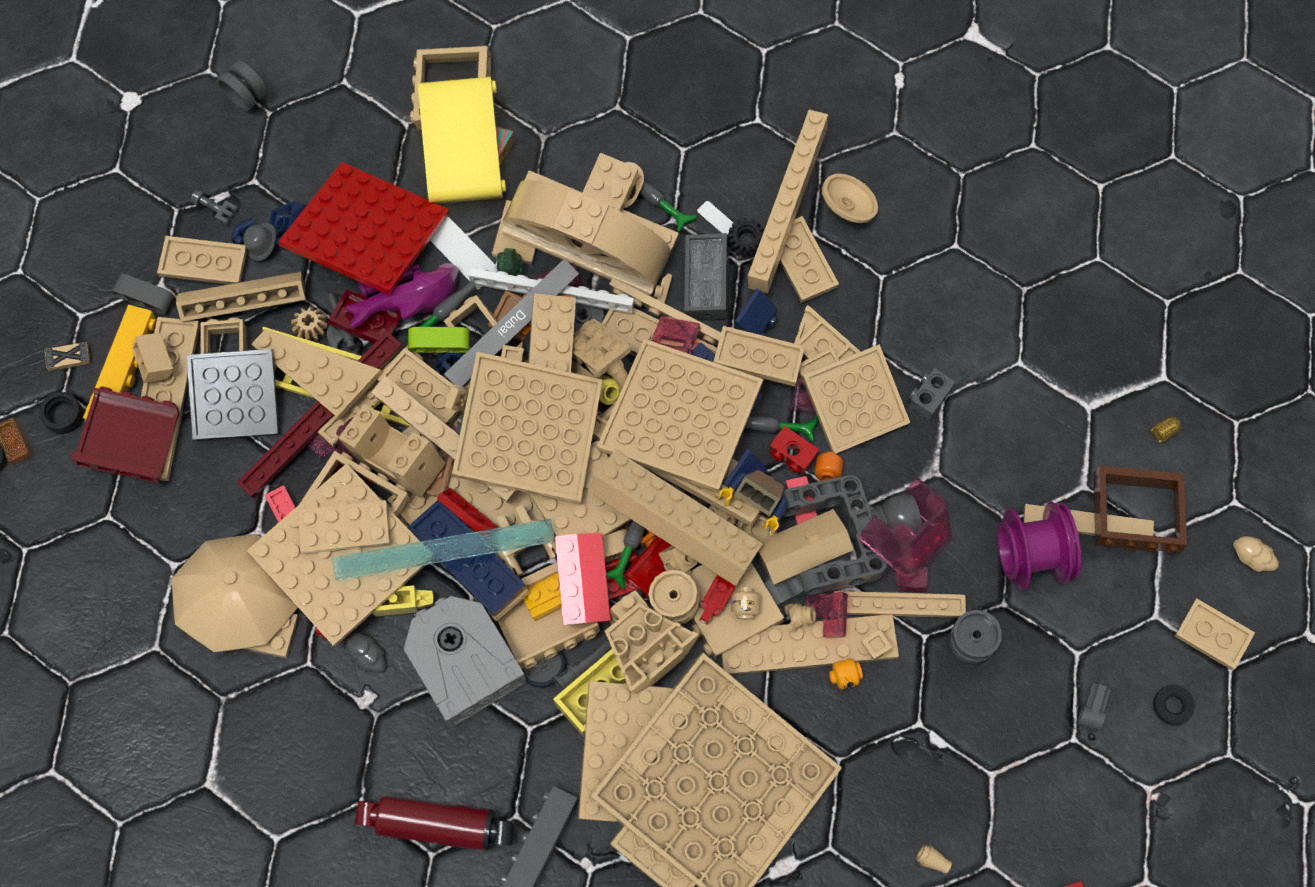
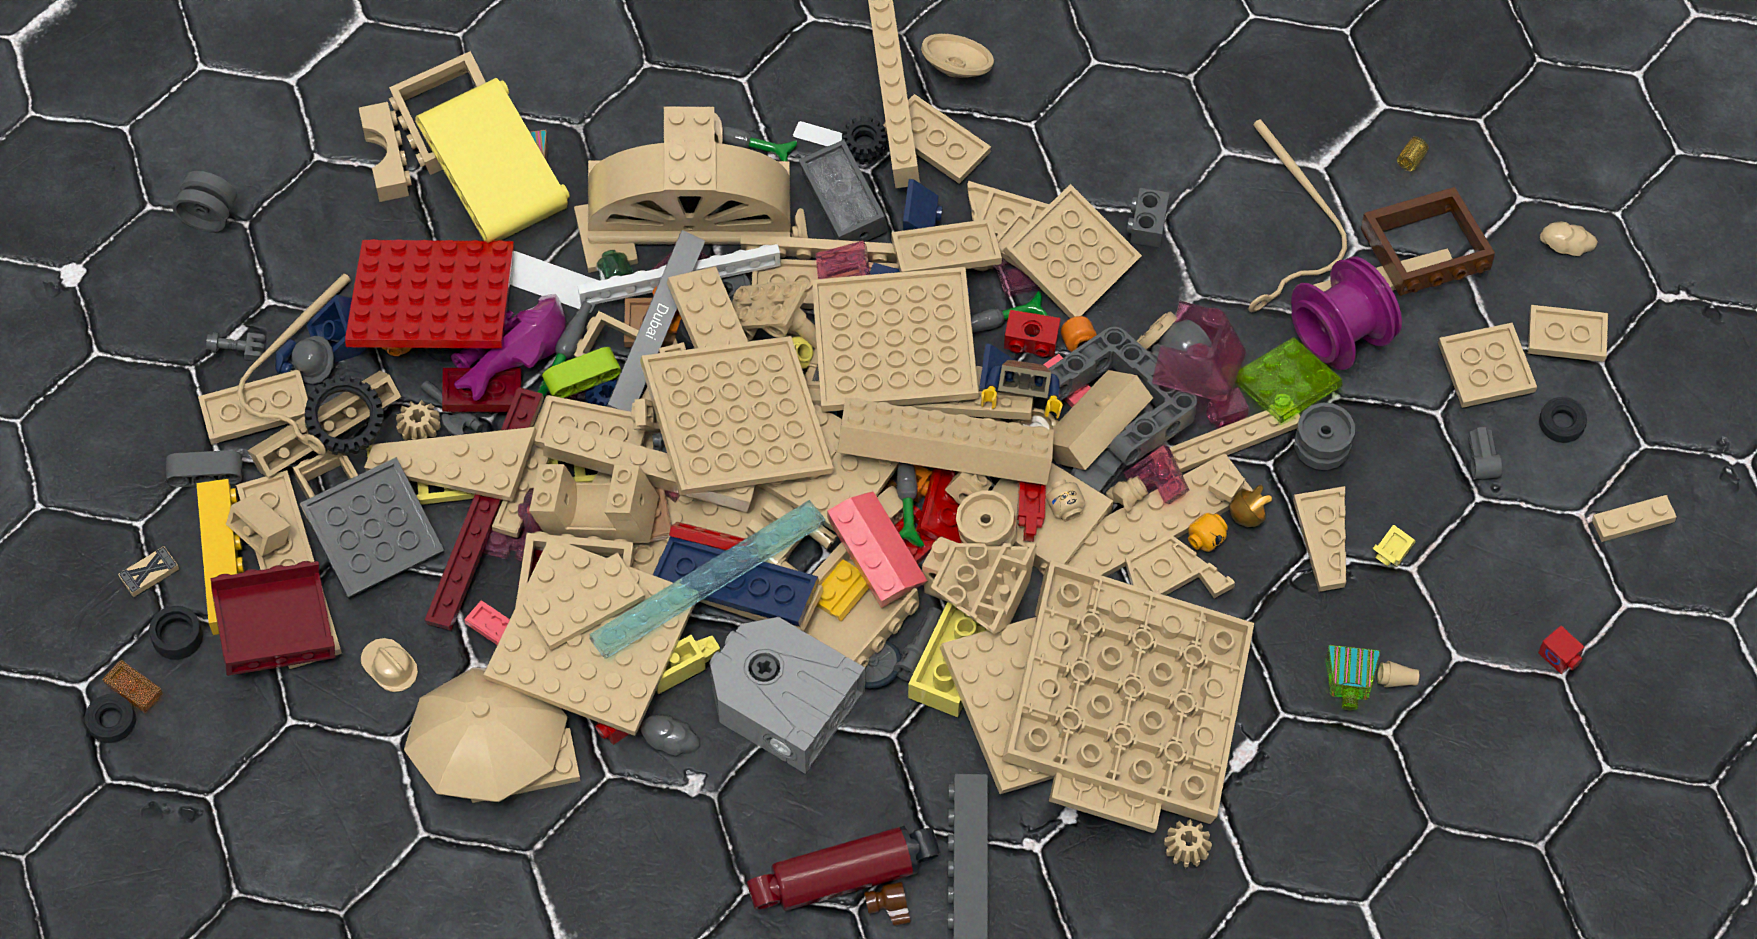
camera: 25 degrees left, 10 degrees down
(197, 504) = (389, 664): none -> tan piece
(248, 274) = (352, 386): none -> black tyre
(258, 211) = (306, 316): none -> tan piece
(386, 120) = (378, 128): none -> tan arch
(460, 861) = (892, 899): none -> reddish brown piece
(800, 688) = (1170, 565): none -> tan wing
(883, 494) = (1157, 330): none -> tan tile
(887, 668) = (1248, 507): none -> pearl gold piece
(897, 842) = (1351, 673): none -> clear neon green torso
(936, 714) = (1324, 533): none -> tan wing
(971, 576) = (1288, 380): none -> clear neon green plate
(984, 752) = (1394, 546): none -> light yellow bracket
(1070, 421) = (1299, 175): none -> tan piece
(1136, 632) = (1487, 365): none -> tan plate
(1189, 813) = (1634, 518): none -> tan plate

